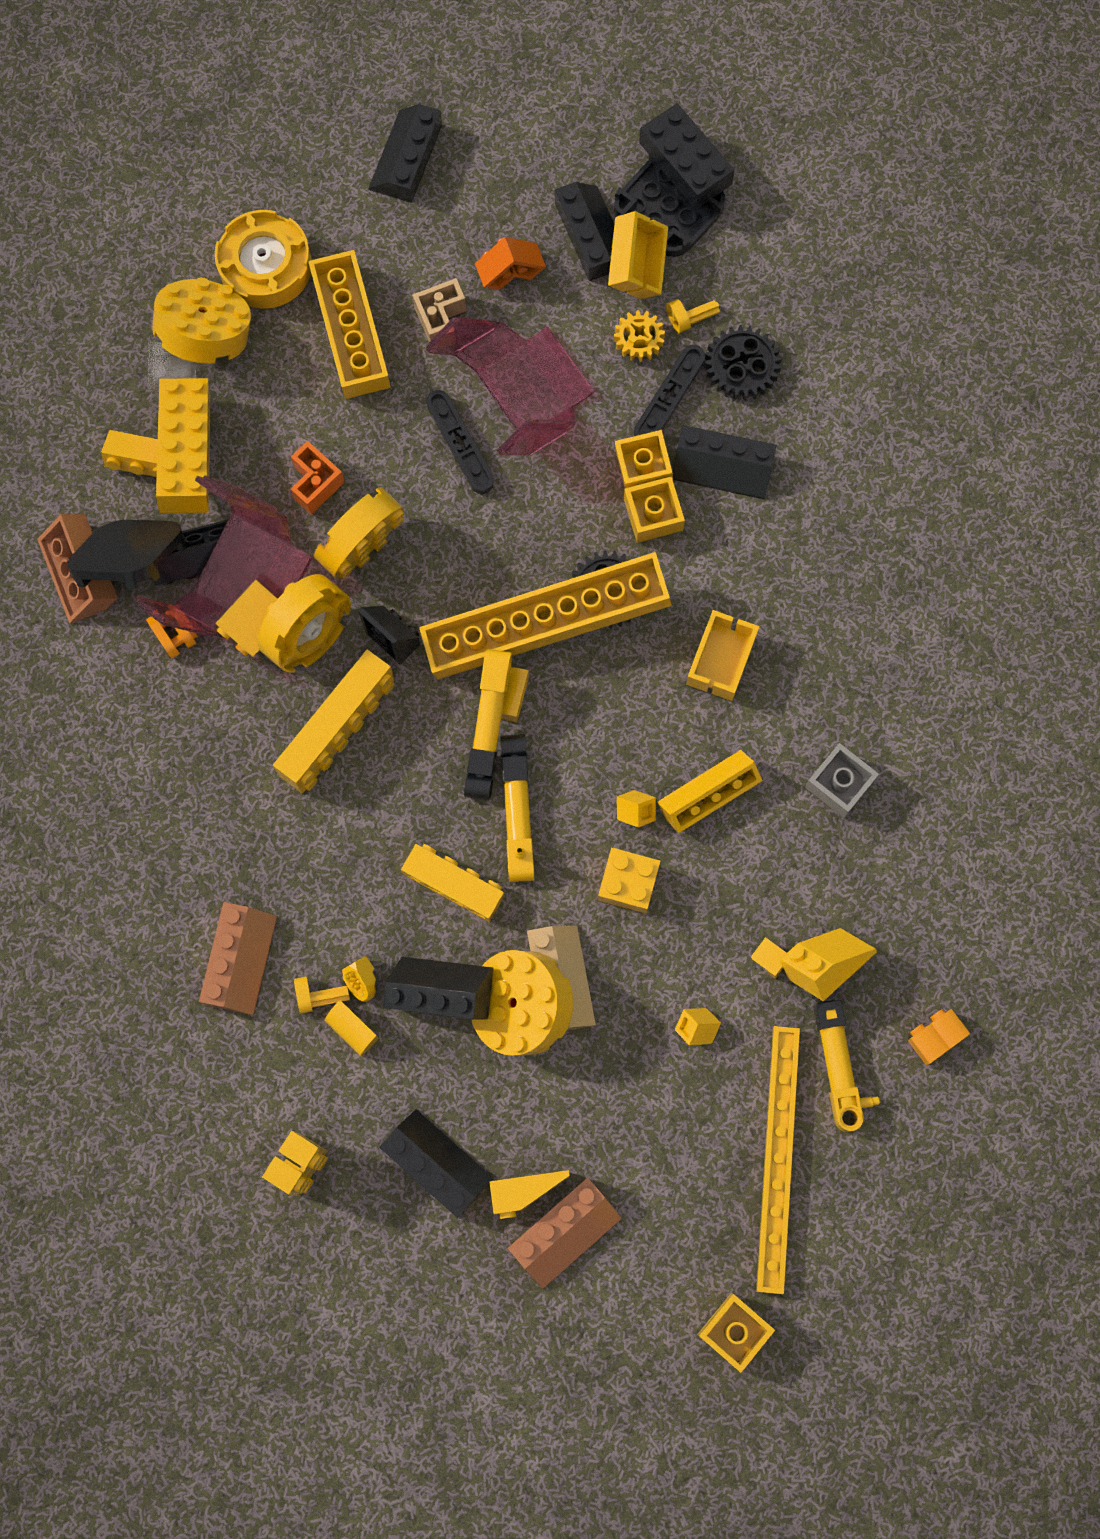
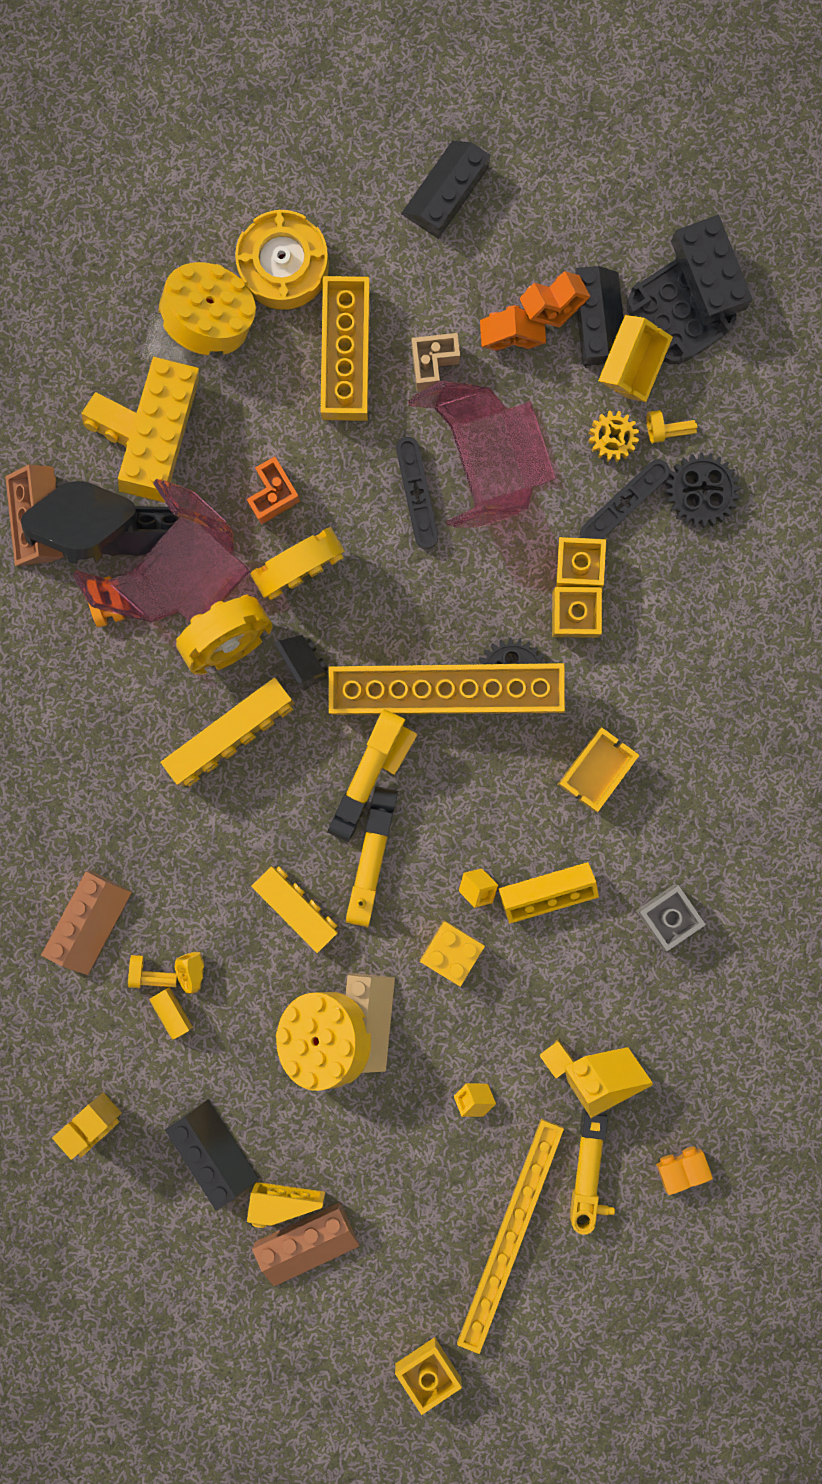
camera: 15 degrees right, 10 degrees up
(245, 618) = (174, 611): yellow brick -> none
(439, 988) = (255, 1007): black slope -> none
(544, 226) = (555, 303): none -> orange brick
(723, 462) = (655, 583): black slope -> none

